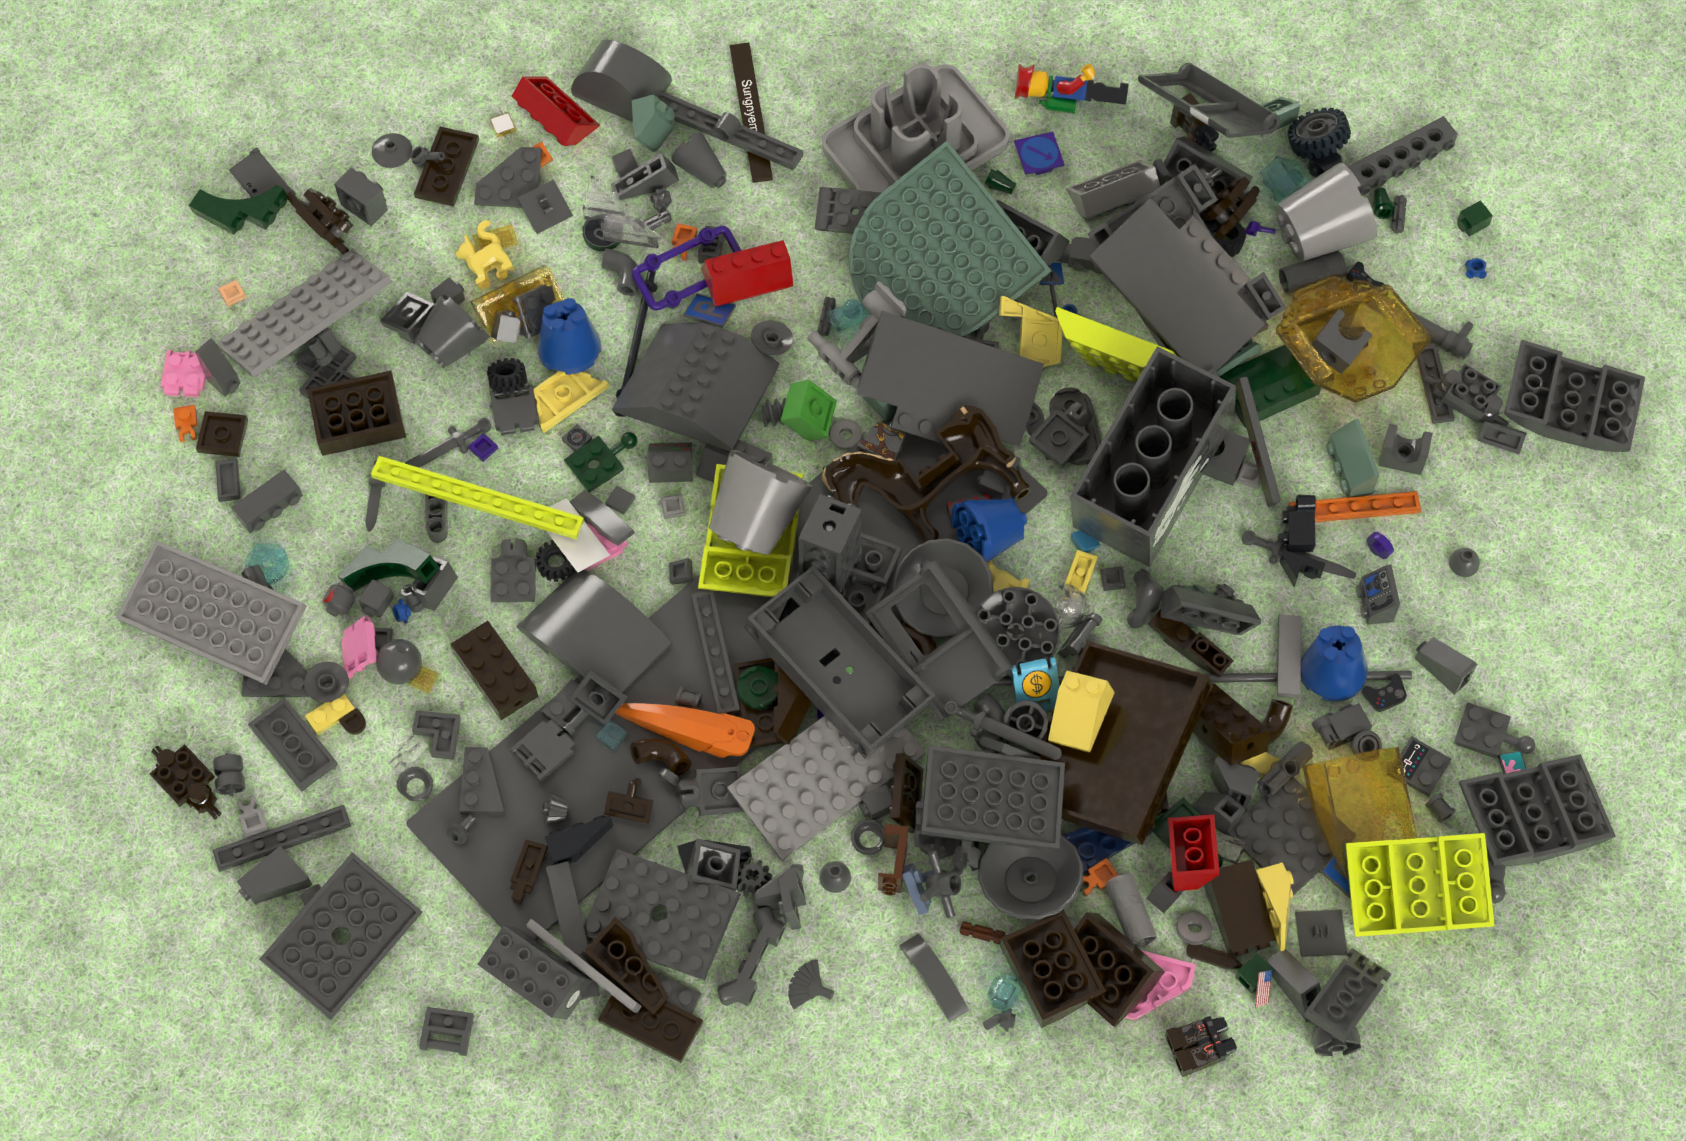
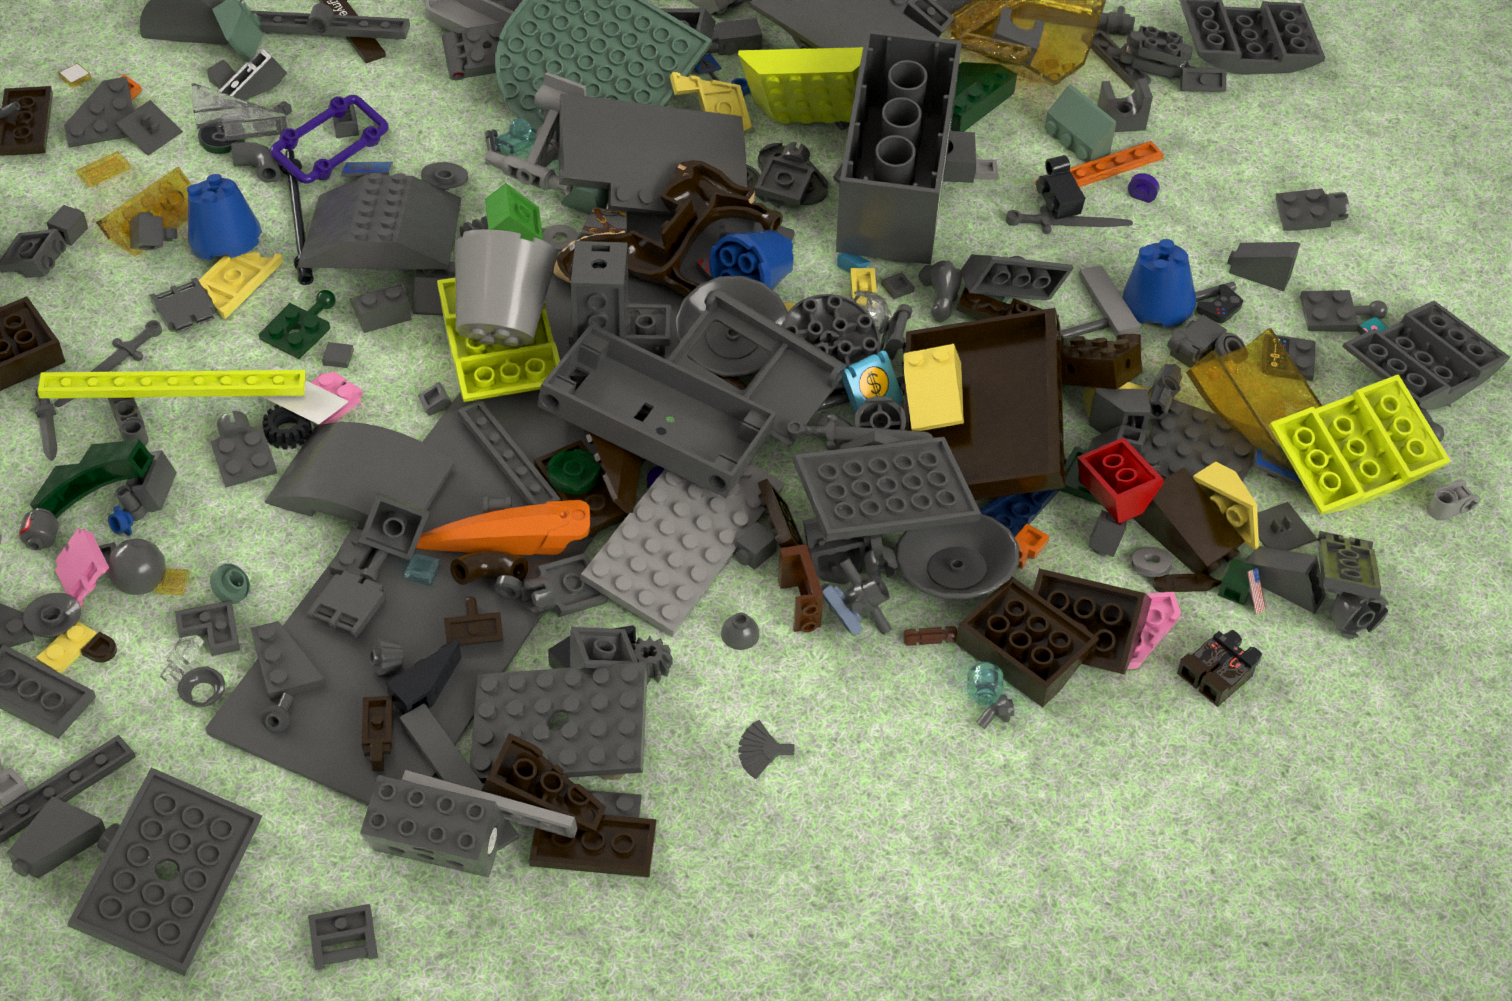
camera: 25 degrees left, 15 degrees down
(376, 599) = (85, 514): dark grey brick -> none
(449, 332) = (84, 247): dark grey cone -> none
(463, 699) = (230, 583): none -> sand green plate
(483, 447) = (159, 348): dark purple tile -> none
(486, 259) = (100, 183): light yellow animal -> none
(494, 670) = (256, 544): dark brown brick -> none
(507, 375) = (163, 275): black tyre -> none
(533, 304) = (173, 205): dark grey plate -> none
(554, 109) = (125, 49): red slope -> none
(576, 438) = (264, 313): dark grey tile -> none
(602, 518) = (329, 367): dark grey slope -> none
(661, 199) = (274, 93): dark grey plant -> none
(673, 506) = (400, 345): light grey tile -> none
(683, 234) = (307, 114): orange plate -> none
(700, 161) = (303, 52): dark grey cone -> none
(744, 988) = (688, 773): dark grey plate -> none
(748, 273) = (395, 125): red slope -> none
(785, 894) = (694, 661): dark grey piece -> none
(867, 825) = (758, 571): dark grey piece -> none
(935, 977) = (903, 692): dark grey slope -> none
(1134, 917) = (1081, 560): light grey piece -> none
(1257, 441) = (989, 140): dark grey tile -> none
(1295, 563) = (1074, 224): black slope -> none
(1378, 596) = (1169, 219): dark grey slope -> none
(1440, 807) = (1330, 383): dark grey bush -> none
(1464, 562) = (1228, 182): dark grey brick -> none
(1486, 959) = (1452, 500): none -> light grey piece
(1524, 615) = (1311, 209): none -> dark grey plate

